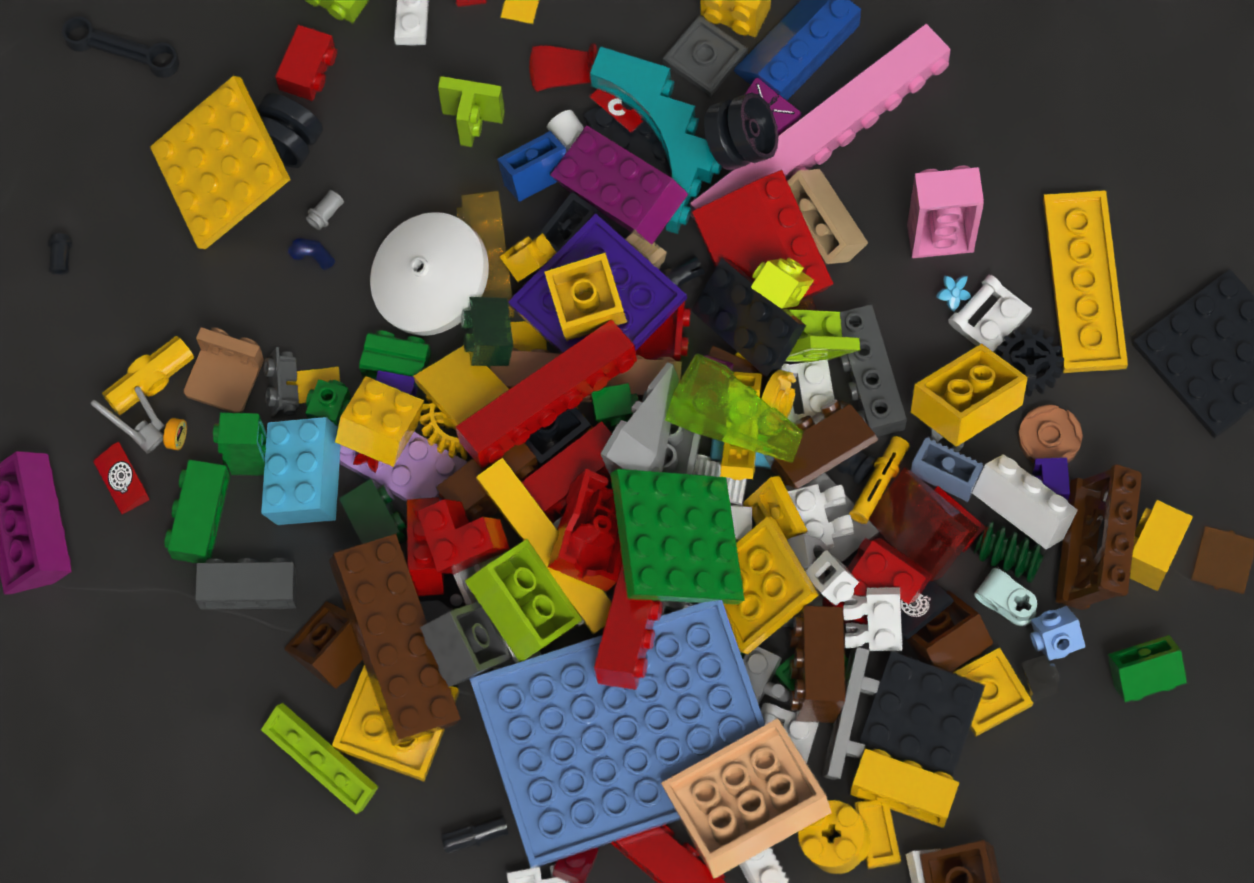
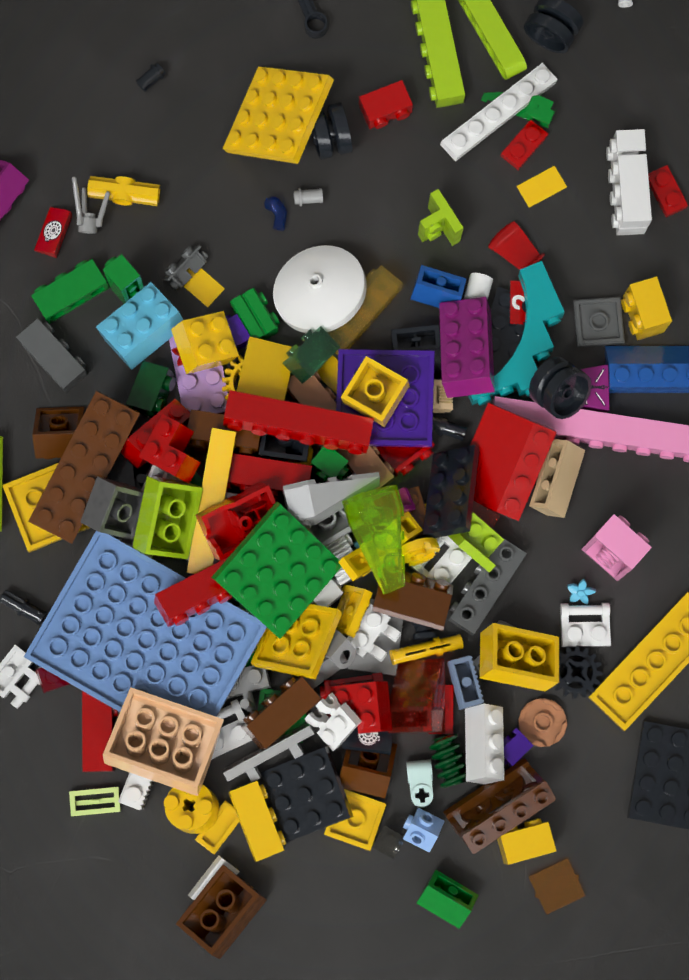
camera: 40 degrees right, 10 degrees up
(175, 433) = (103, 237): light orange tile -> none
(224, 370) = (162, 230): medium nougat bracket -> none
(328, 400) = (193, 303): green brick -> none
(527, 256) = (377, 335): yellow brick -> none
(781, 282) = (486, 493): neon yellow brick -> none
(838, 584) = (333, 683): white brick -> none

